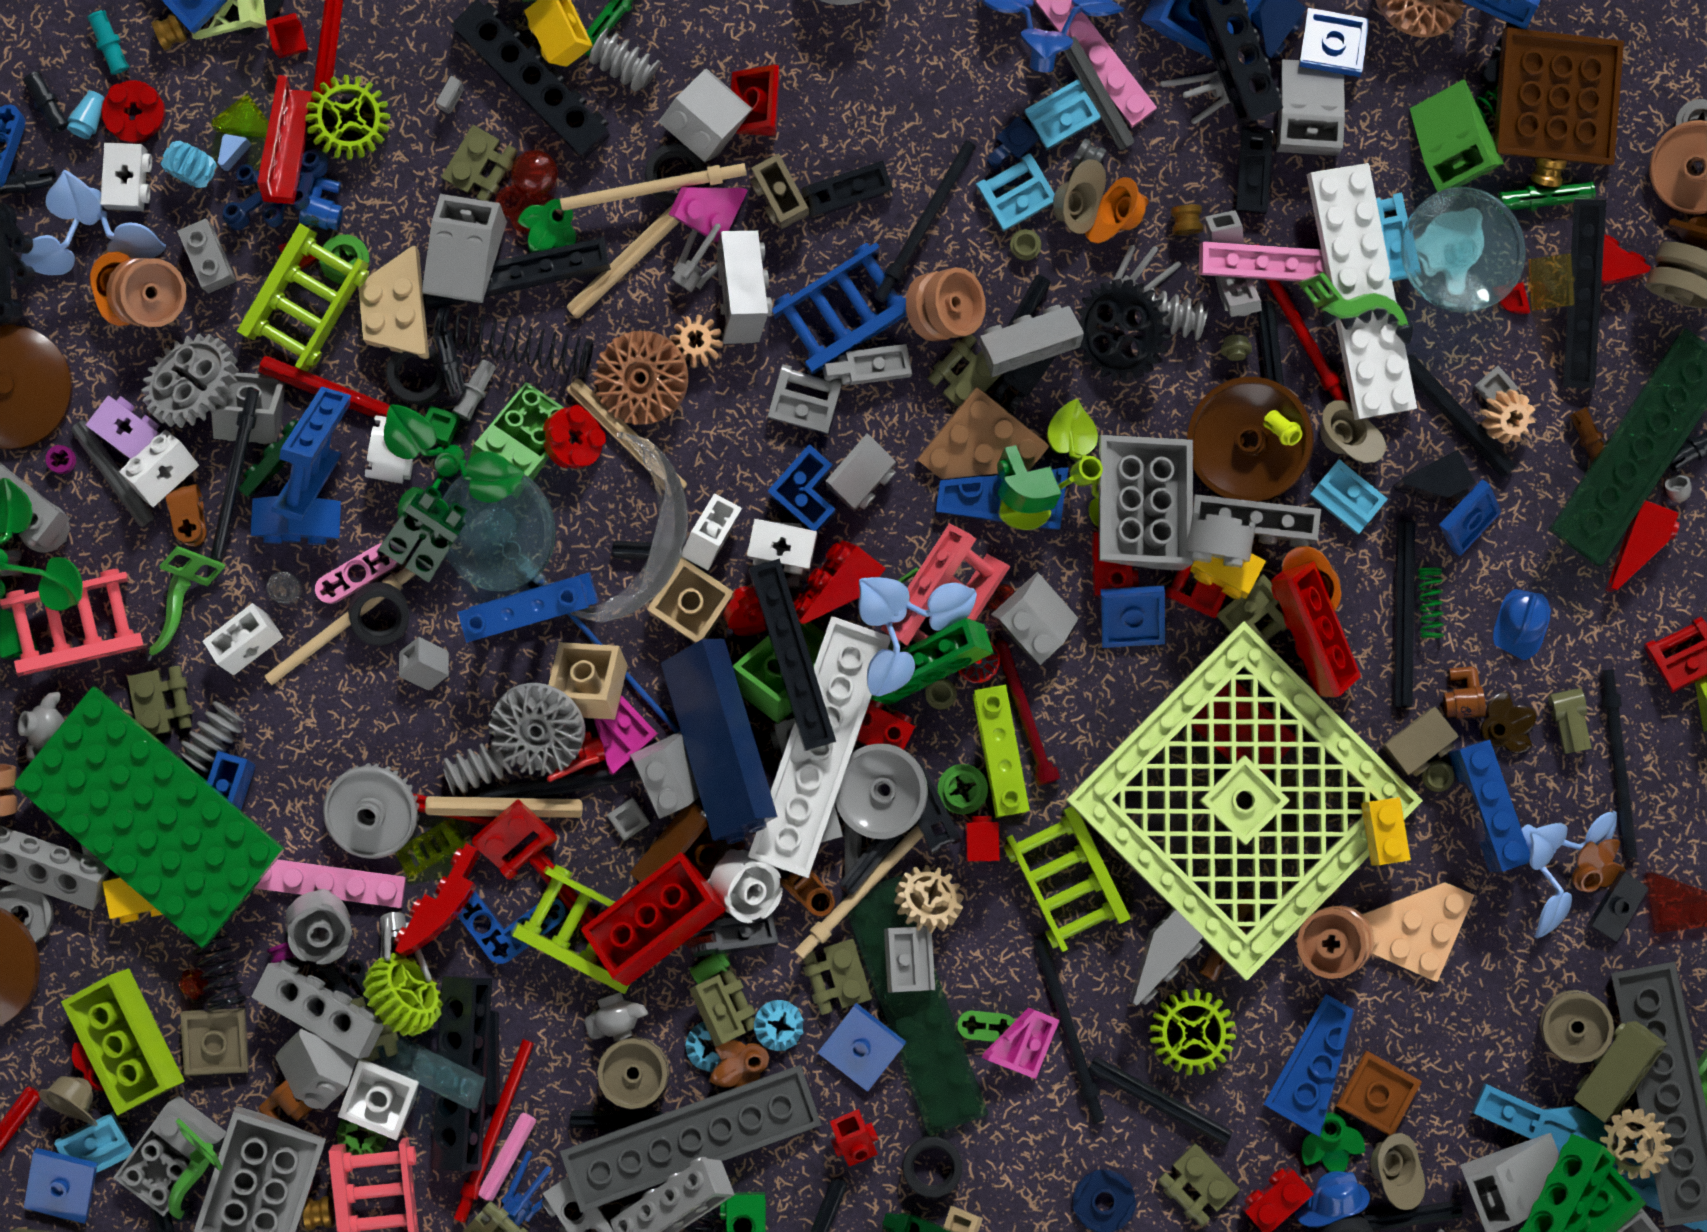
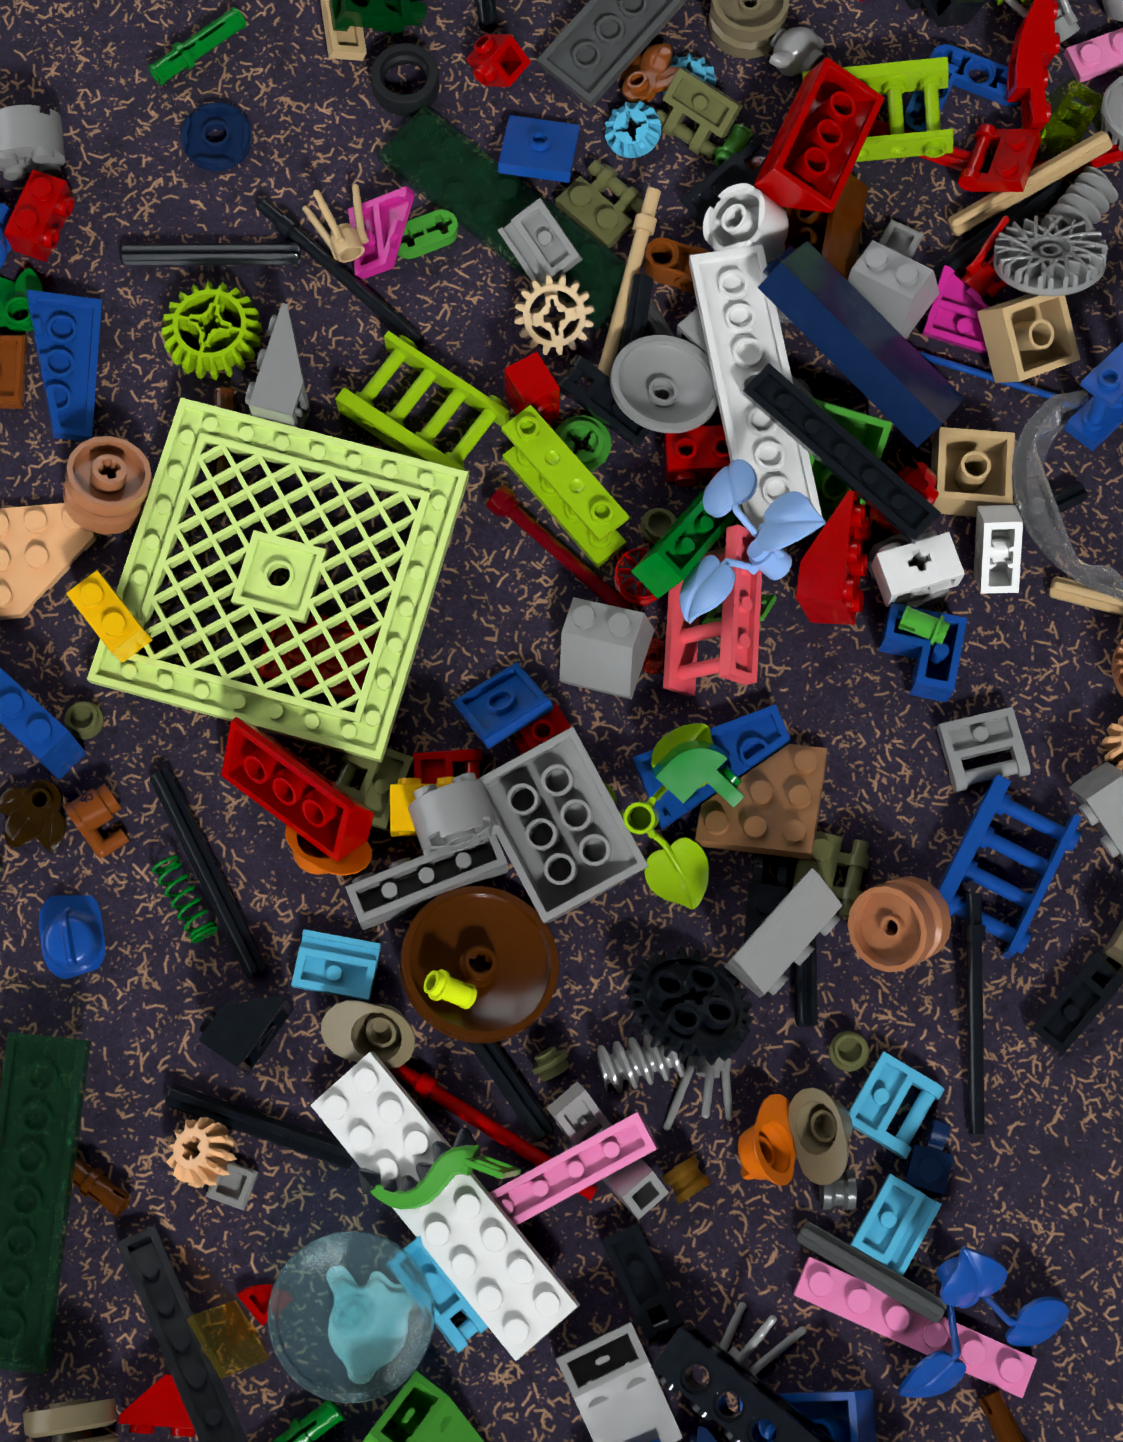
camera: 145 degrees right, 10 degrees down
(804, 499) = (924, 625): none -> bright green pin
(861, 473) = (878, 697): light grey slope -> none
(870, 365) = (936, 821): light grey hinge -> none
(1055, 1047) = (345, 242): none -> tan plant
(1205, 1177) = (126, 207): olive plate -> none
(1420, 741) = (120, 739): dark tan brick -> none
(1470, 517) = (186, 1009): blue plate -> none

